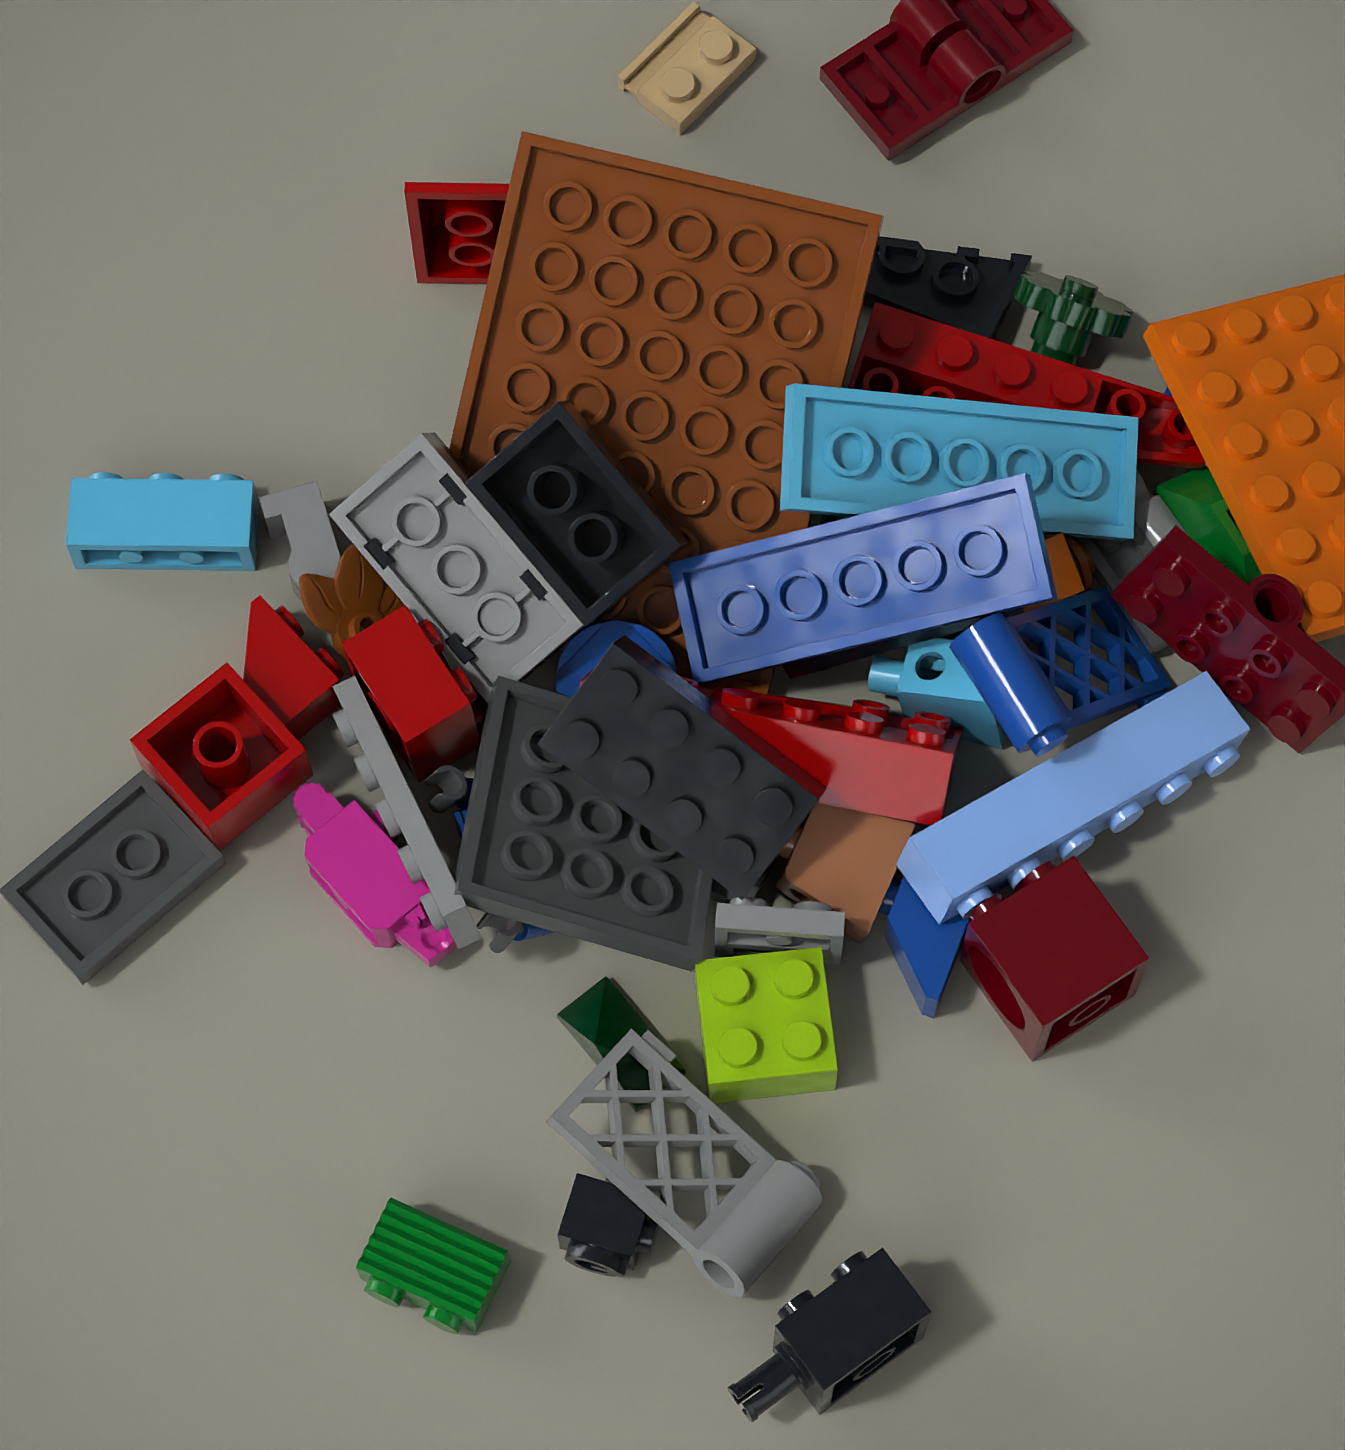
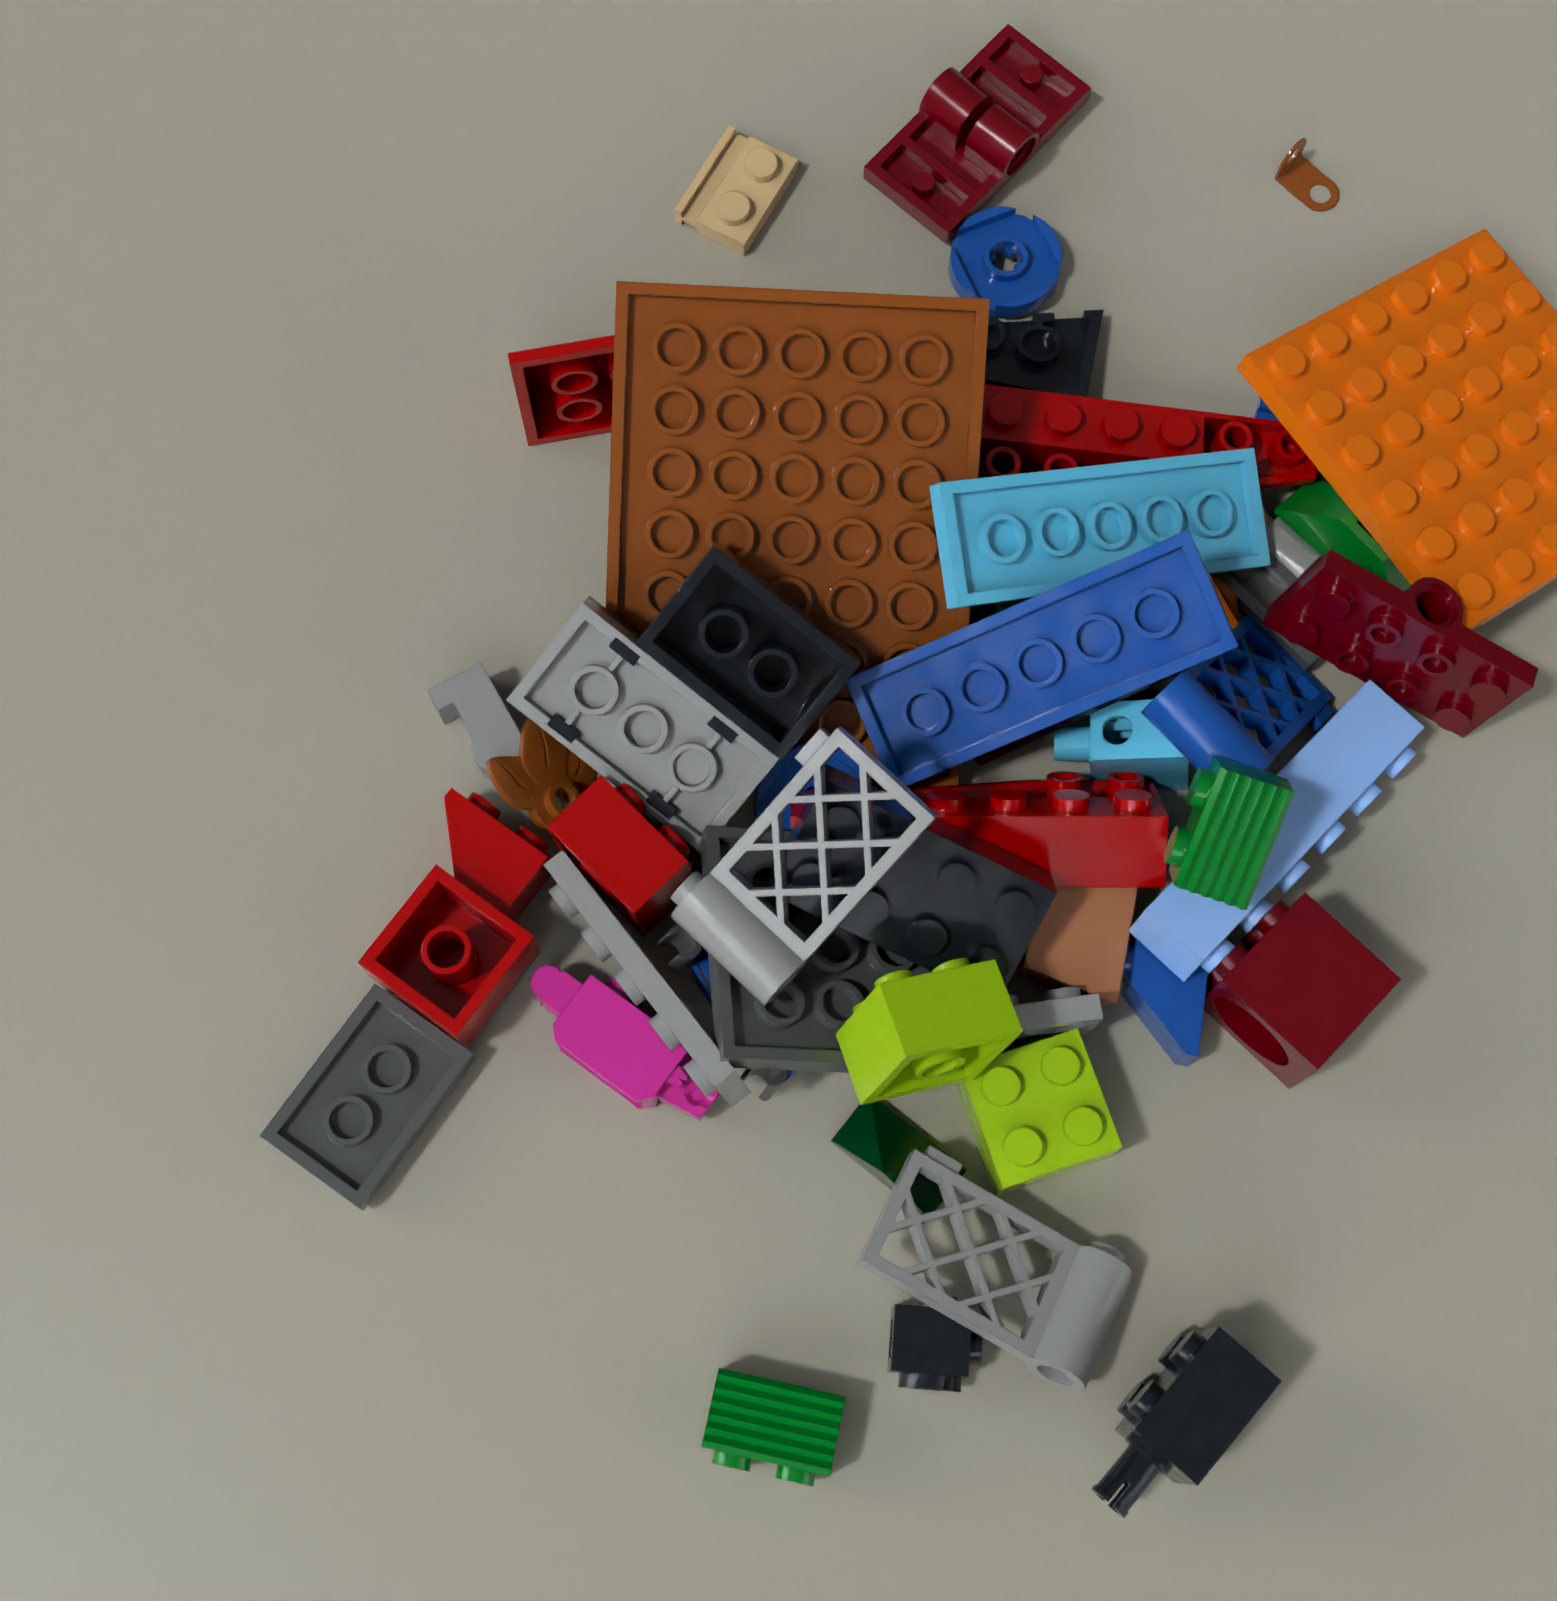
camera: 15 degrees left, 5 degrees up
(163, 523) = (337, 732): medium azure brick -> none
(502, 767) = (741, 925): none -> light grey piece
(661, 905) = (927, 1029): none -> lime brick
(938, 220) = (1016, 236): none -> blue plate
(1002, 774) = (1228, 831): none -> green brick
(1069, 314) = (1156, 360): dark green plant -> none
(1274, 159) = (1300, 176): none -> dark orange piece

